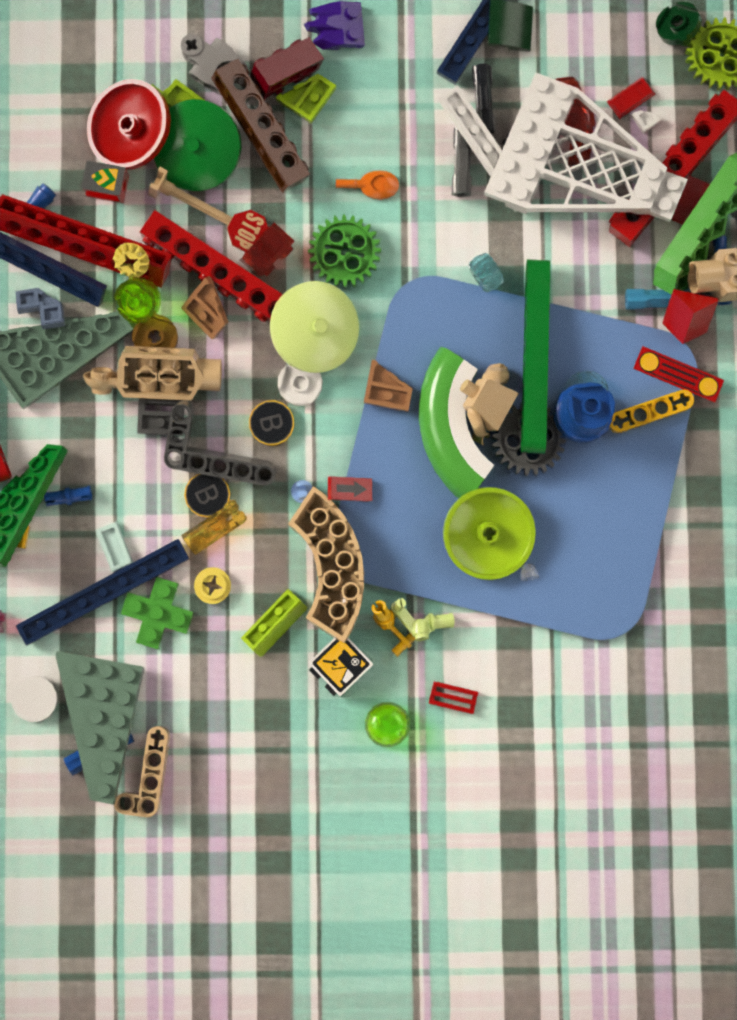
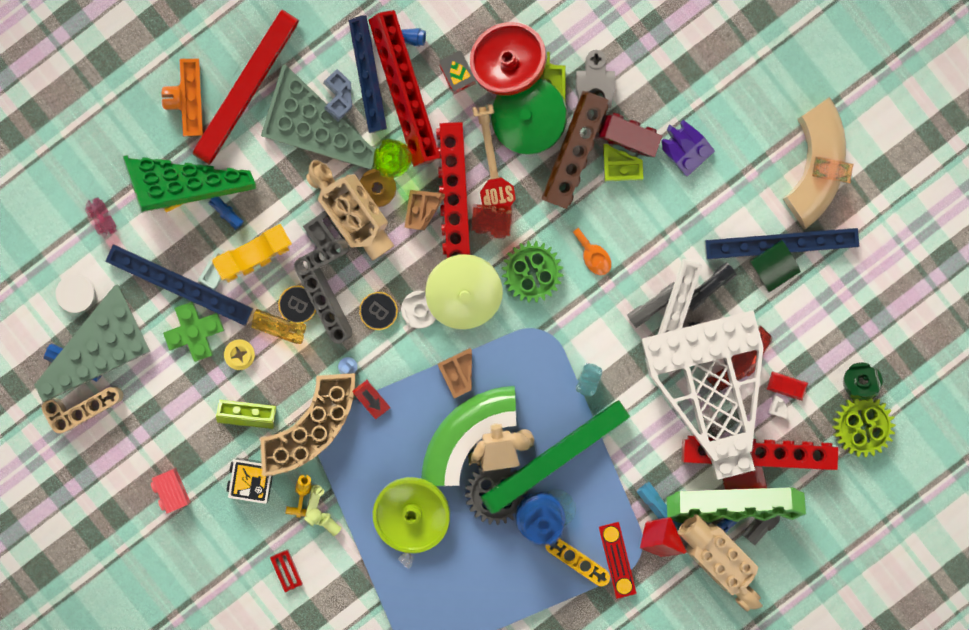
camera: 50 degrees right, 5 degrees up
(127, 497) = (252, 254): none -> yellow brick
(134, 252) = (419, 133): light yellow gear -> none
(292, 750) = (170, 491): none -> coral brick
(387, 724) = (235, 540): clear neon green cylinder -> none

